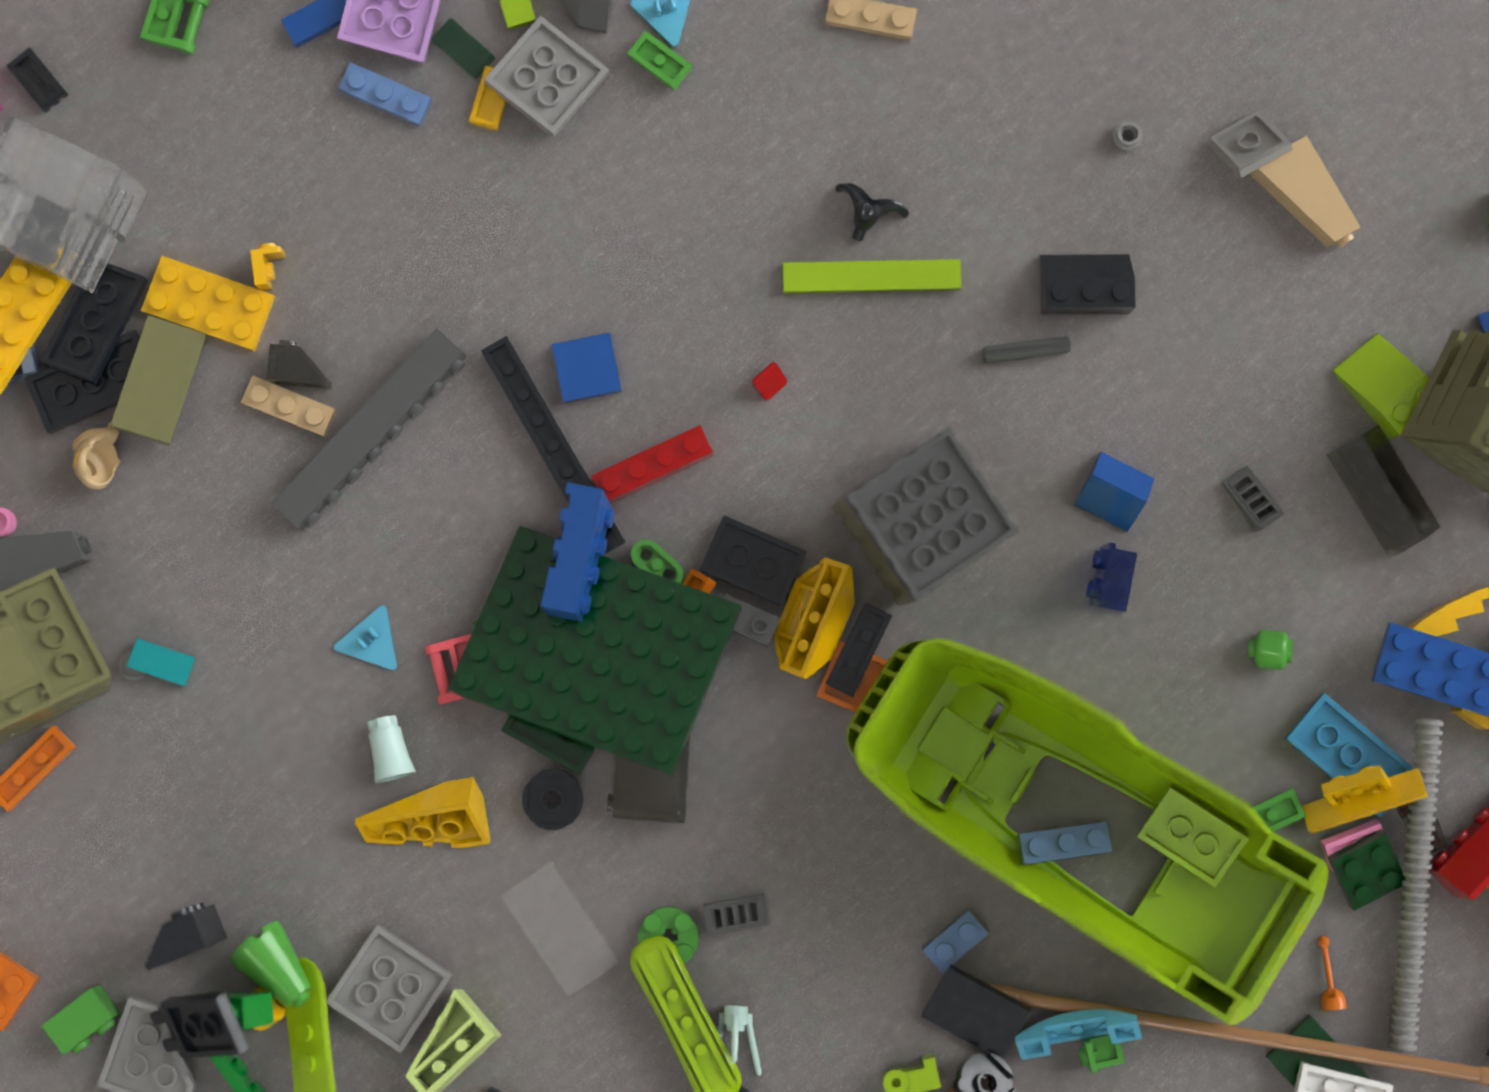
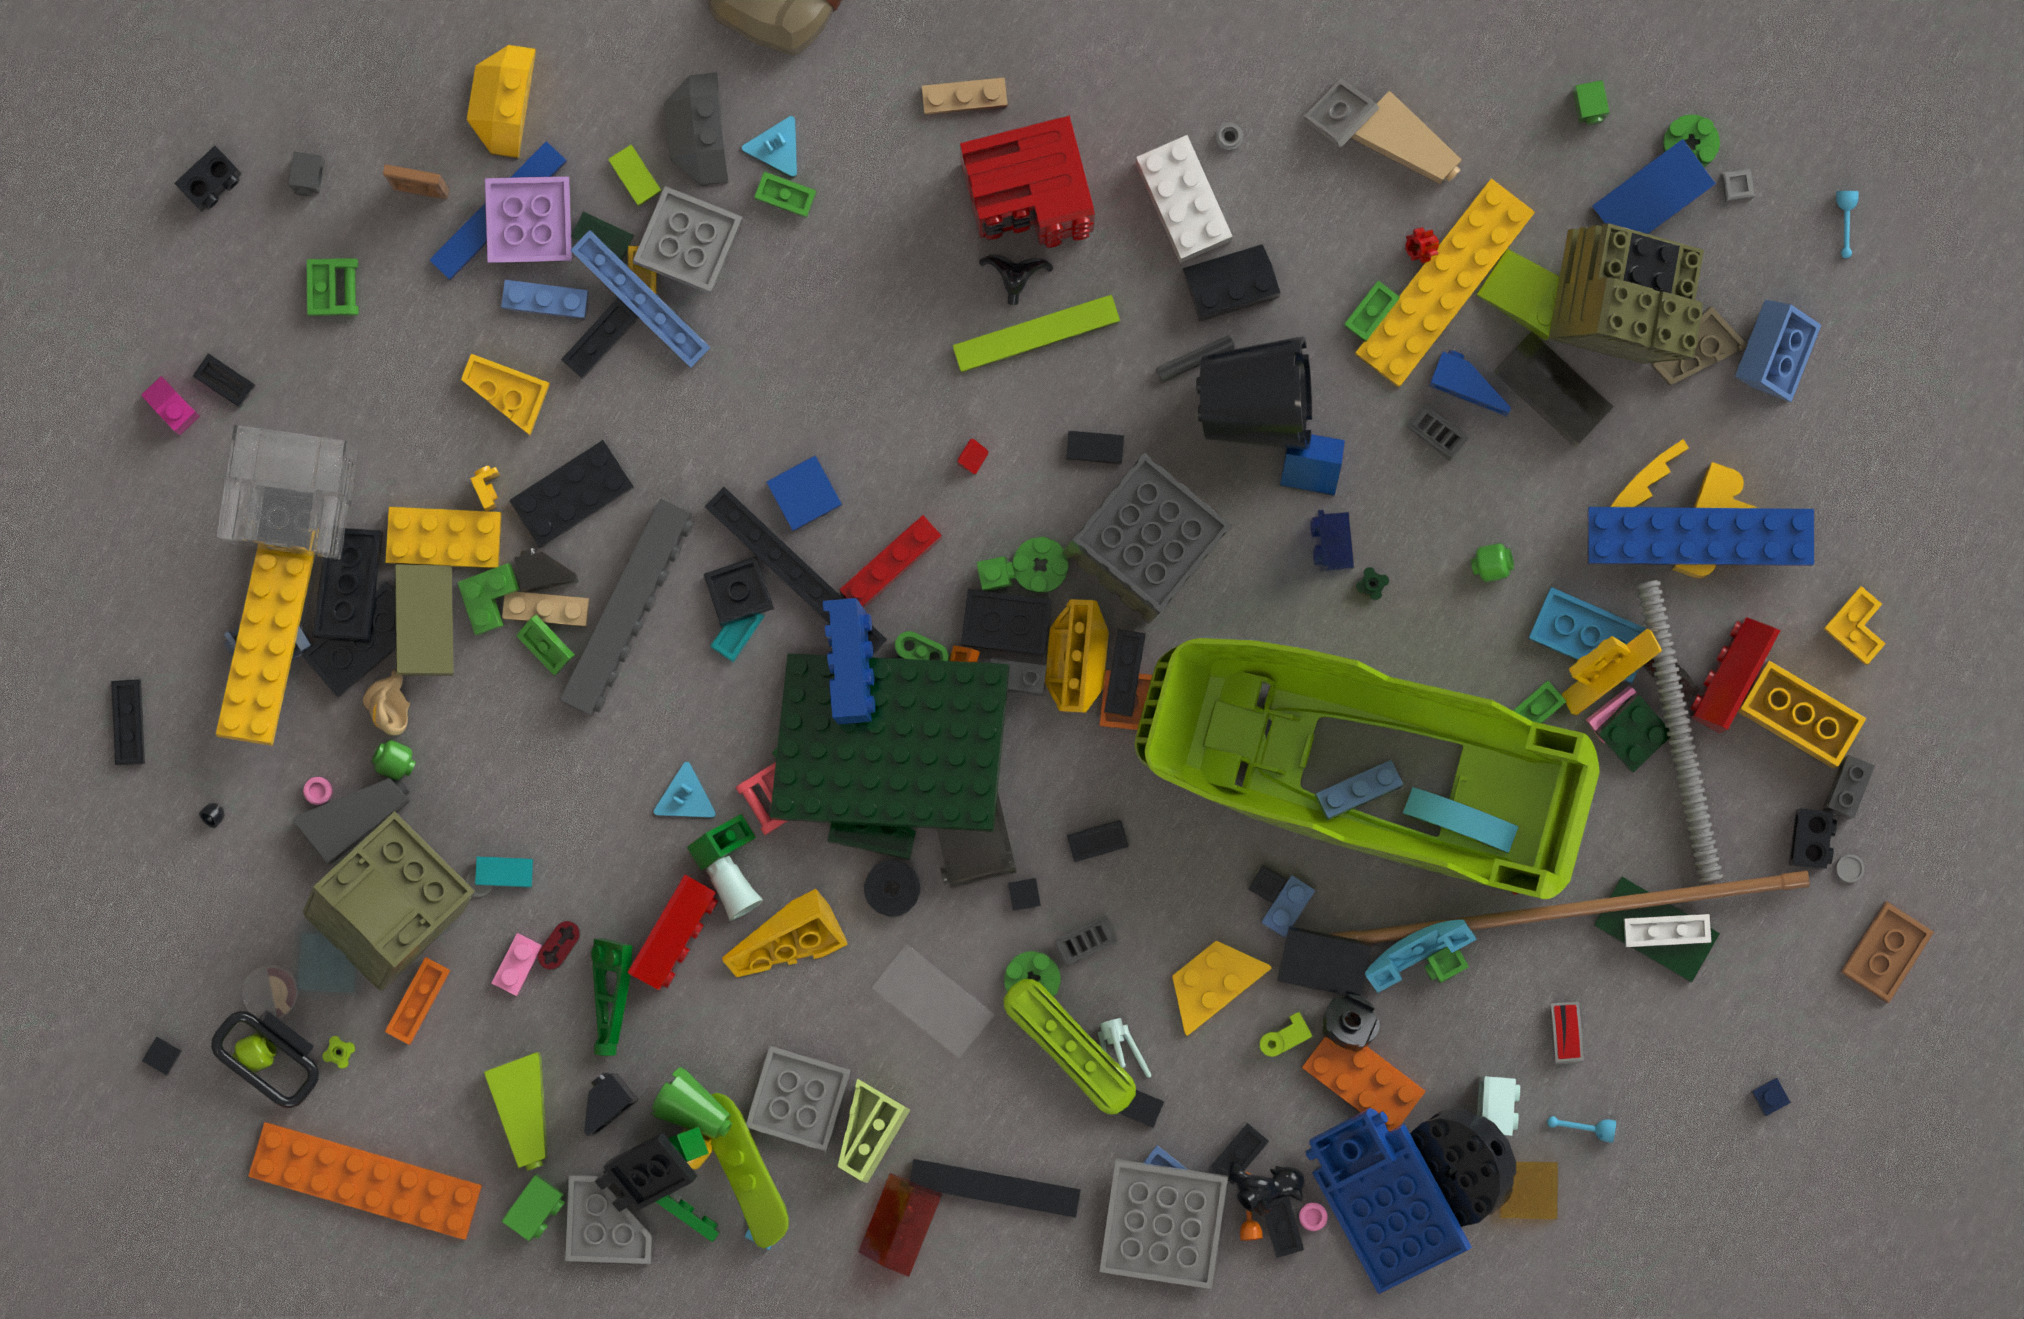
camera: 15 degrees left, 0 degrees up
(84, 514) = (393, 760): none -> bright green head
(101, 912) = (521, 1106): none -> lime slope
(145, 761) = (517, 964): none -> bright pink plate
(190, 749) = (553, 941): none -> dark red beam
(226, 371) = (480, 595): none -> bright green plate
(244, 786) = (616, 958): none -> green plate
(275, 443) = (545, 645): none -> bright green plate
(311, 778) = (673, 932): none -> red slope
(318, 173) = (507, 390): none -> yellow wing
(351, 298) = (571, 493): none -> black plate
(392, 698) = (721, 842): none -> green slope
(428, 149) = (600, 338): none -> black plate
(475, 488) = (735, 636): none -> teal tile
(480, 120) = (640, 298): none -> medium blue plate
(489, 447) = (738, 591): none -> black tile
(687, 846) = (1024, 894): none -> black tile
(757, 508) = (996, 573): none -> bright green brick
(779, 814) = (1097, 841): none -> black tile
(798, 528) = (1042, 549): none -> bright green plate
(854, 996) = (1213, 982): none -> yellow wing
(897, 409) = (1095, 447): none -> black tile
(912, 114) = (1029, 180): none -> red piece
(940, 911) = (1267, 884): none -> black tile
(1063, 184) = (1183, 199): none -> white brick
(1081, 404) = (1257, 394): none -> black cone
(1131, 634) = (1373, 591): none -> dark green plate
(1160, 905) = (1460, 819): none -> medium azure slope
(1193, 836) = (1469, 748): lime plate -> none
(1221, 355) = (1371, 311): none -> bright green plate
(1293, 303) = (1422, 245): none -> red gear
(1296, 455) = (1463, 381): none -> blue slope
(1303, 349) = (1445, 283): none -> yellow plate
(1332, 997) = (1637, 854): orange hinge -> none

